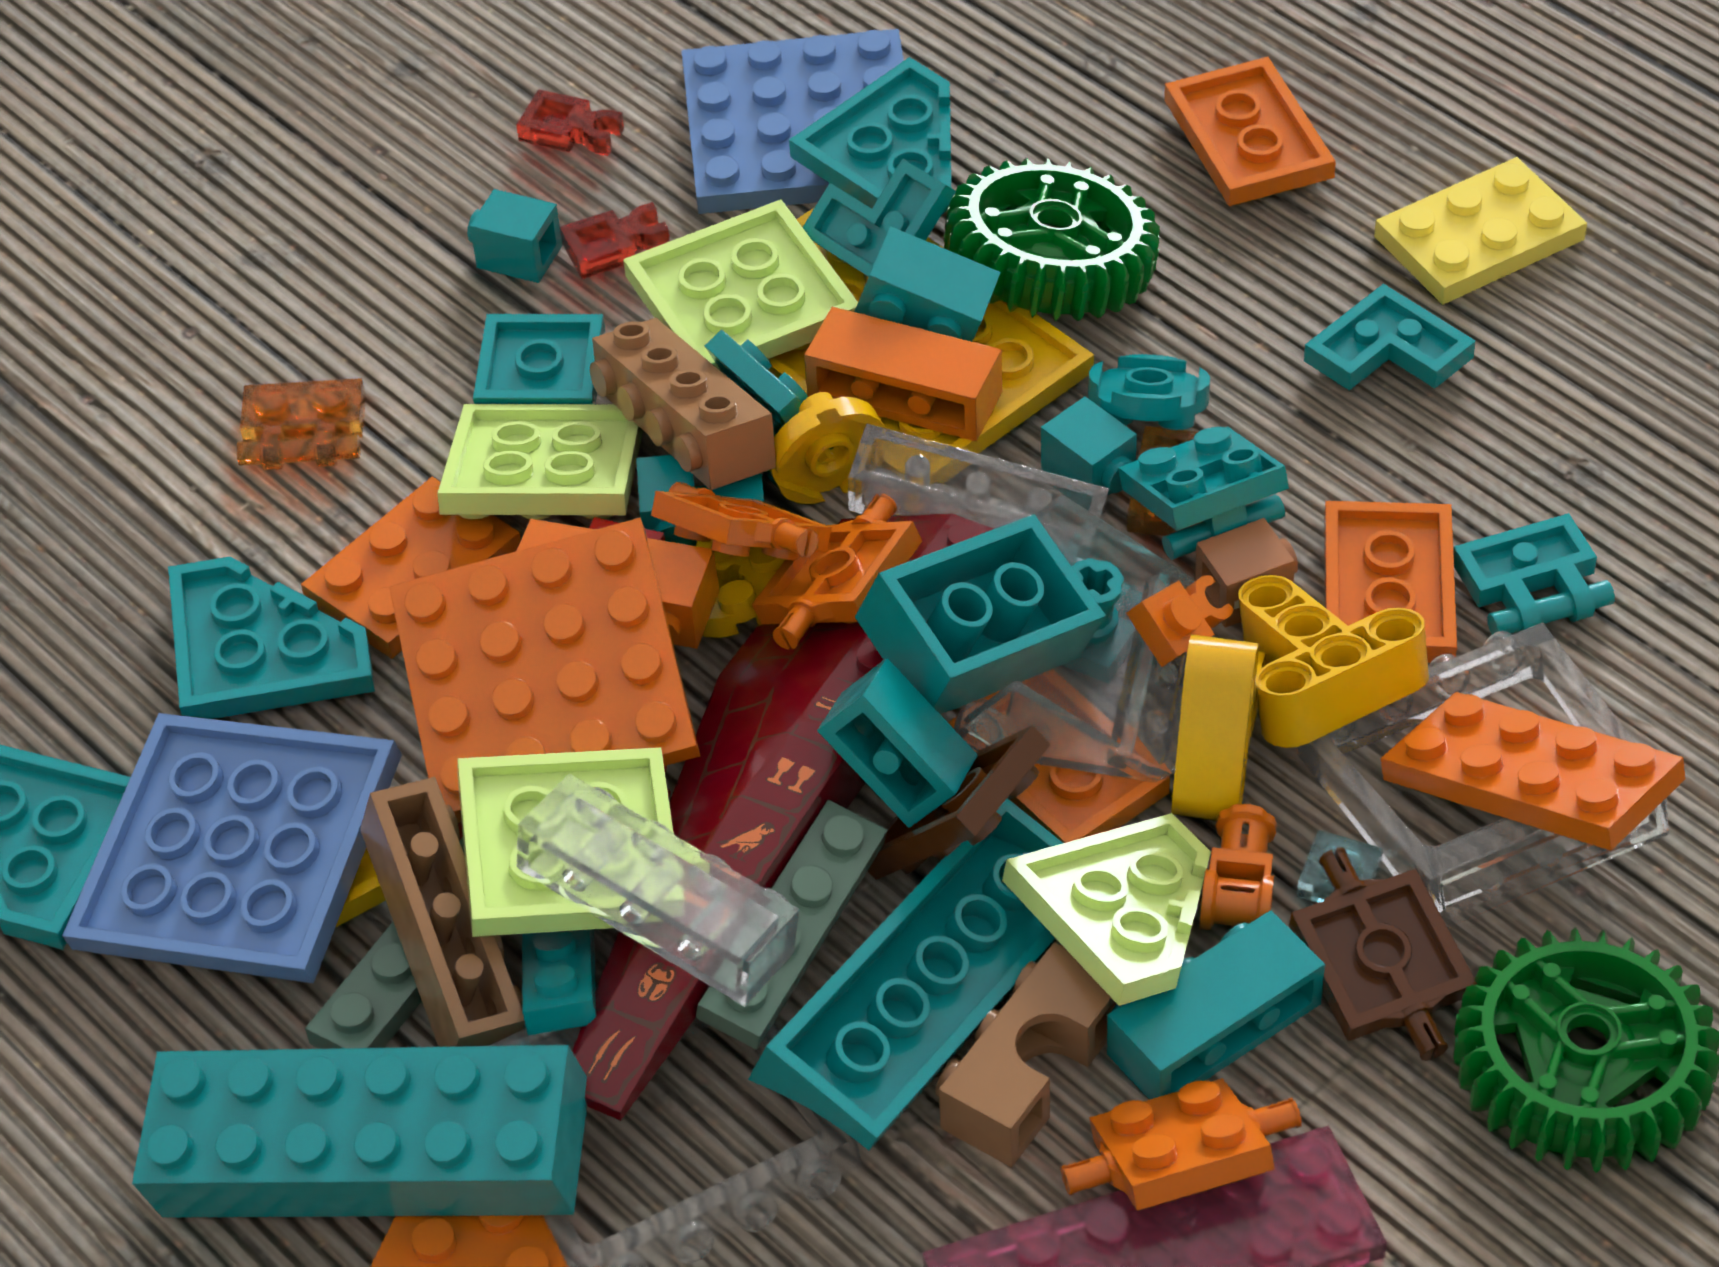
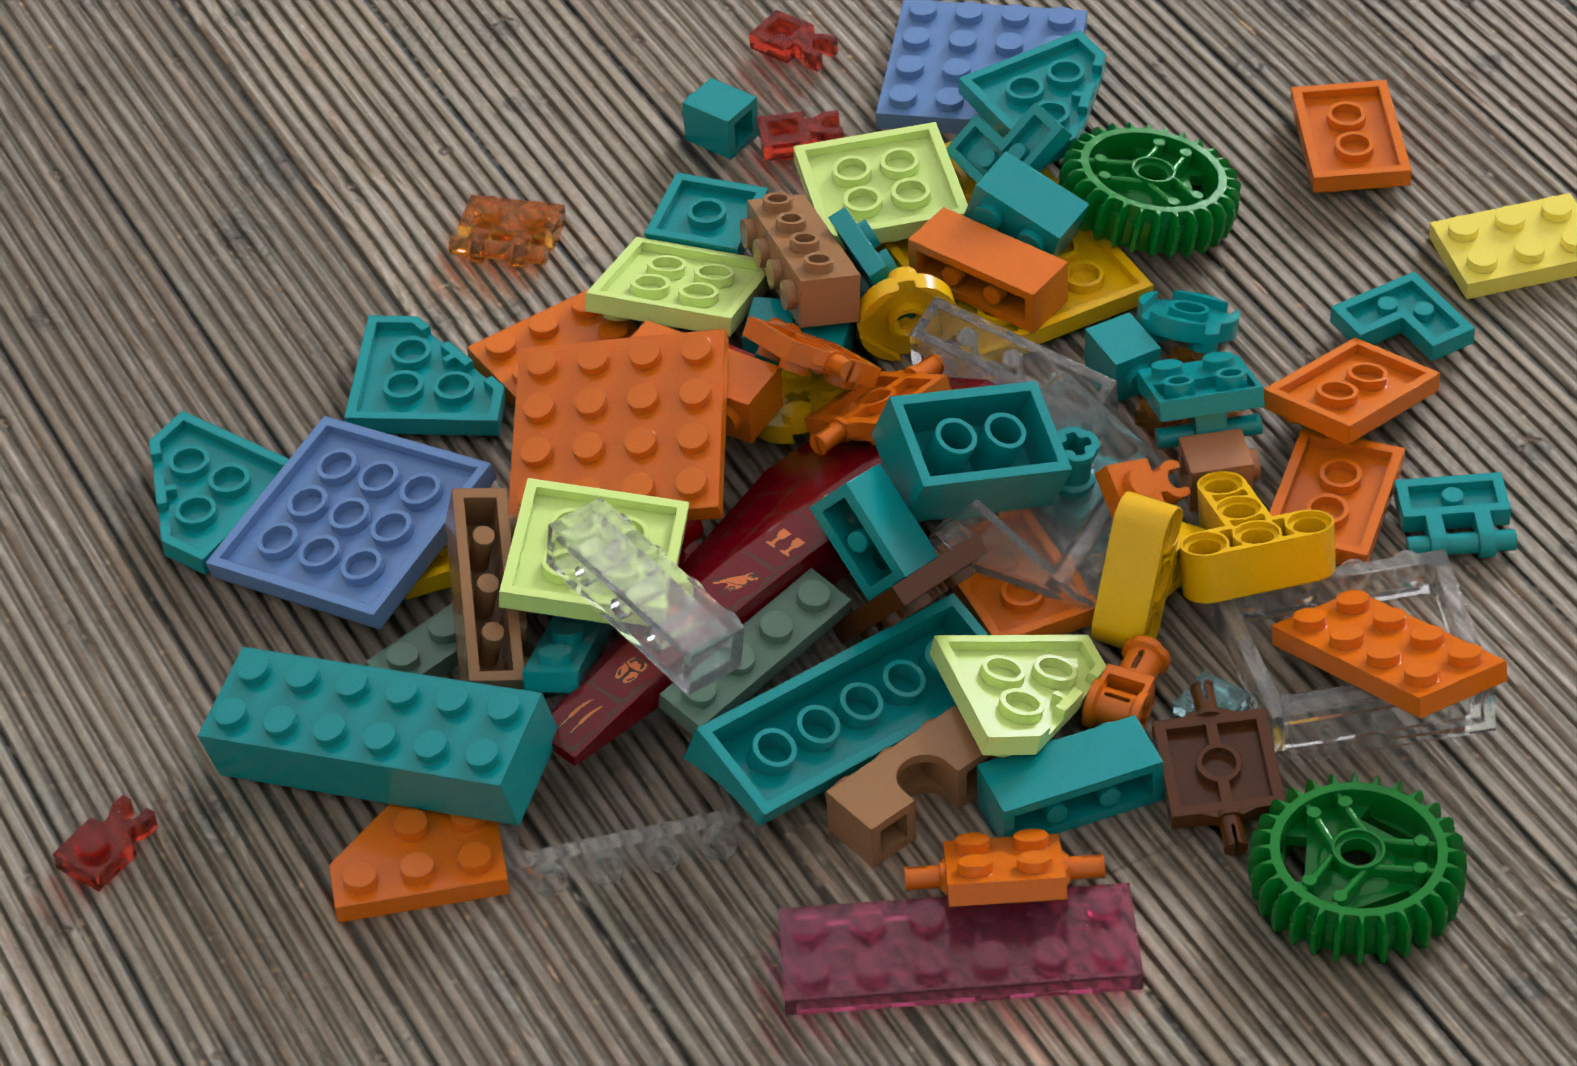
camera: 15 degrees right, 5 degrees down
(1368, 445) = (1350, 390): none -> orange plate

